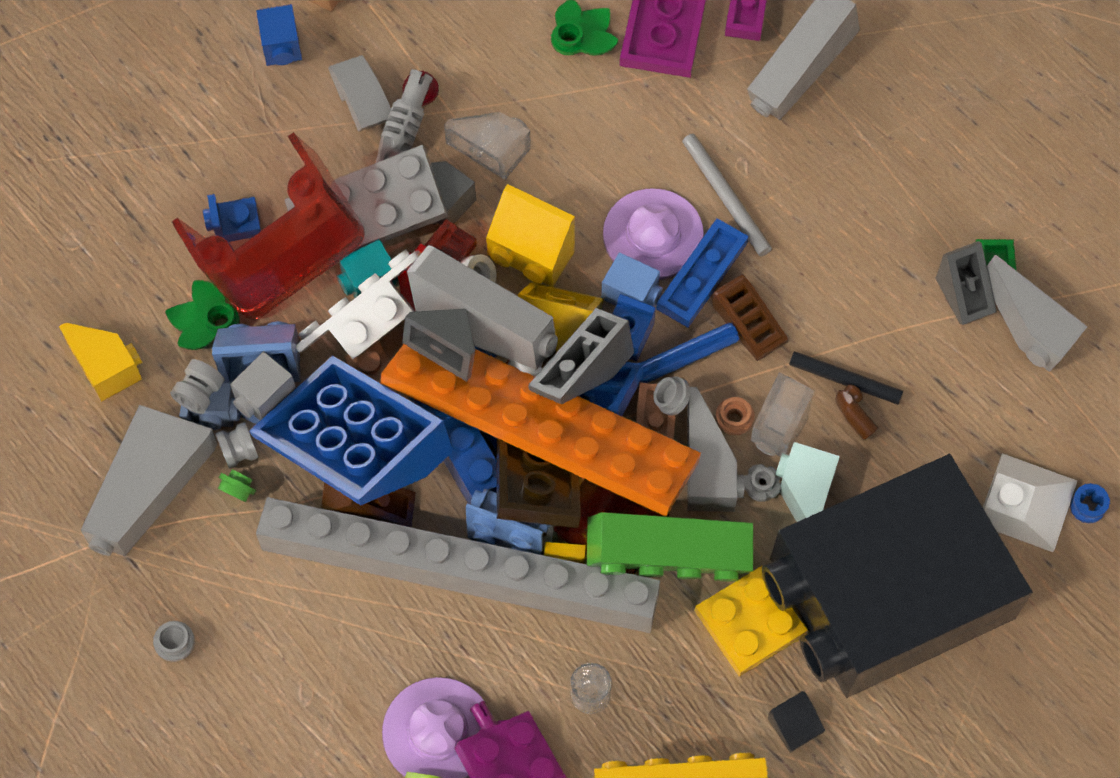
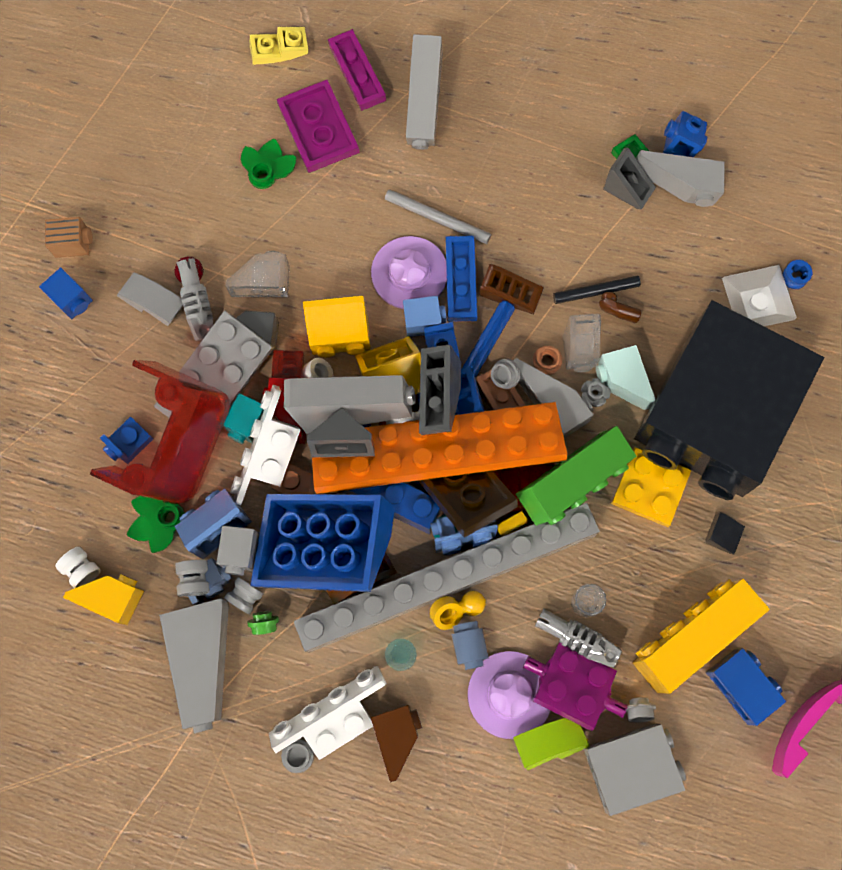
camera: 30 degrees left, 10 degrees up
(94, 308) = (77, 567): none -> white wheel
(236, 630) = (332, 719): none -> white bracket
(286, 689) = (396, 737): none -> reddish brown slope
(353, 612) = (400, 654): none -> clear light blue plate
(431, 648) = (469, 645): none -> sand blue brick
(465, 611) = (448, 612): none -> yellow plate
(553, 721) = (580, 638): none -> light grey hinge
(1071, 271) = (685, 135): none -> blue brick

